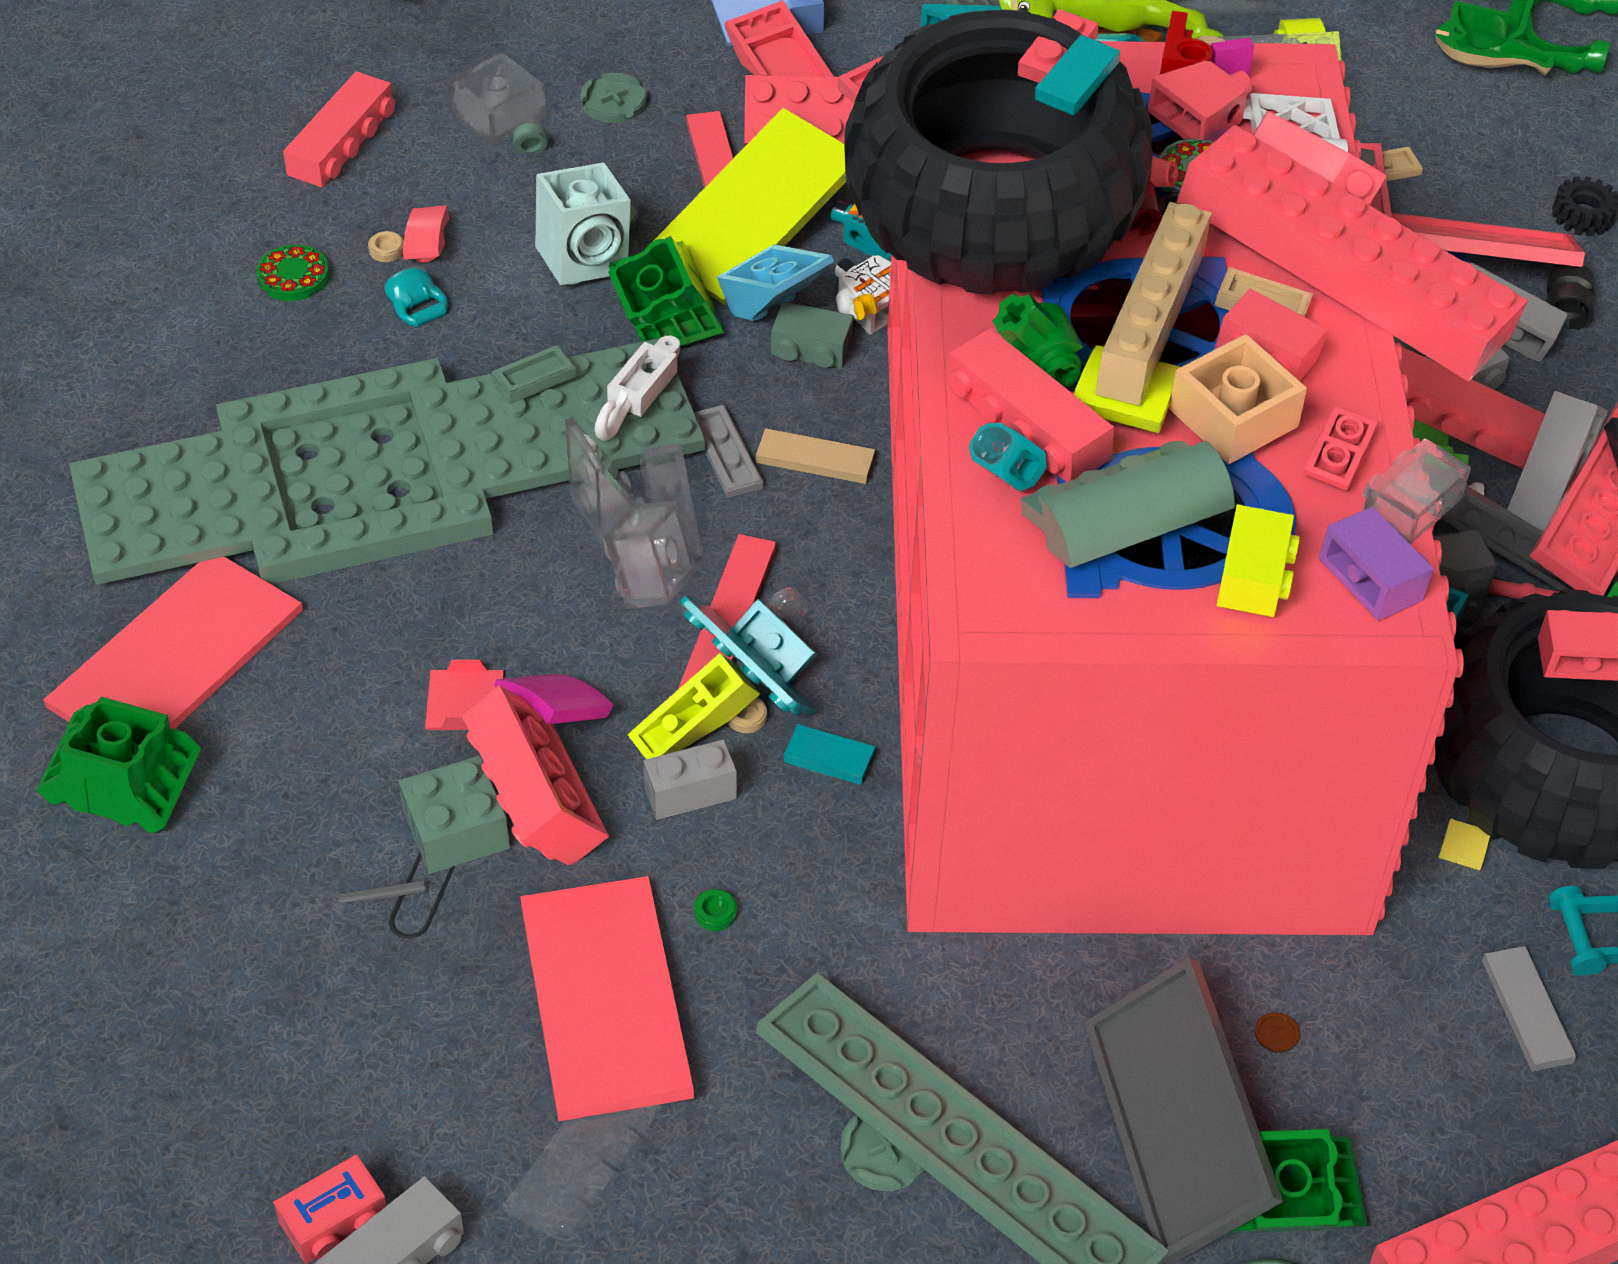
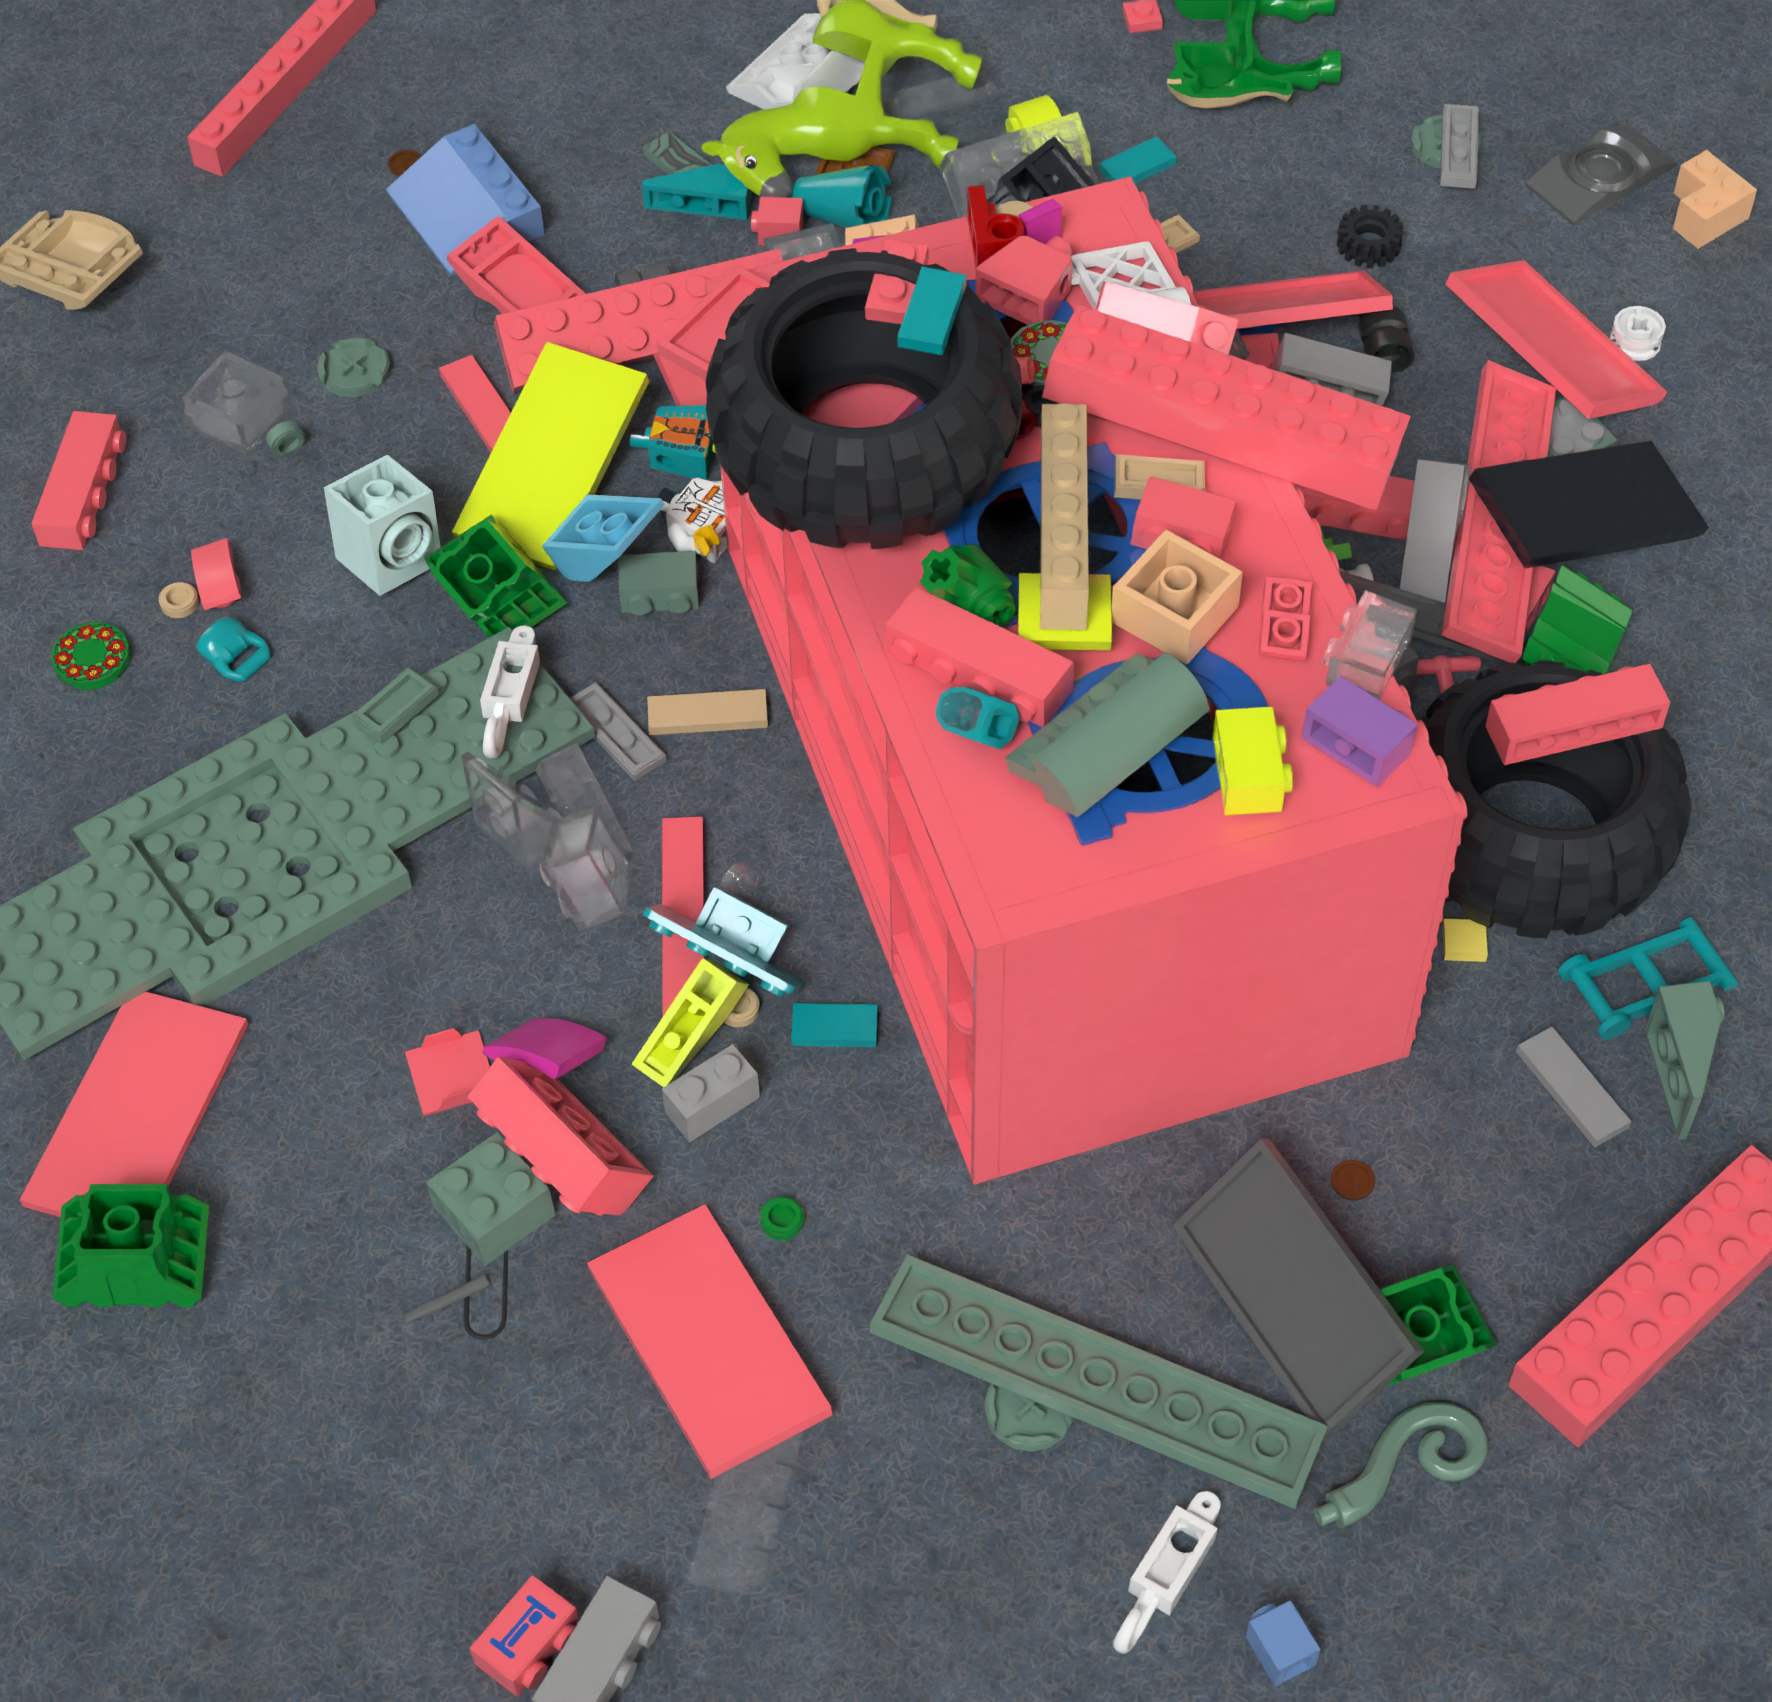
camera: 15 degrees left, 5 degrees up
(1386, 96) = (1139, 161): none -> teal tile

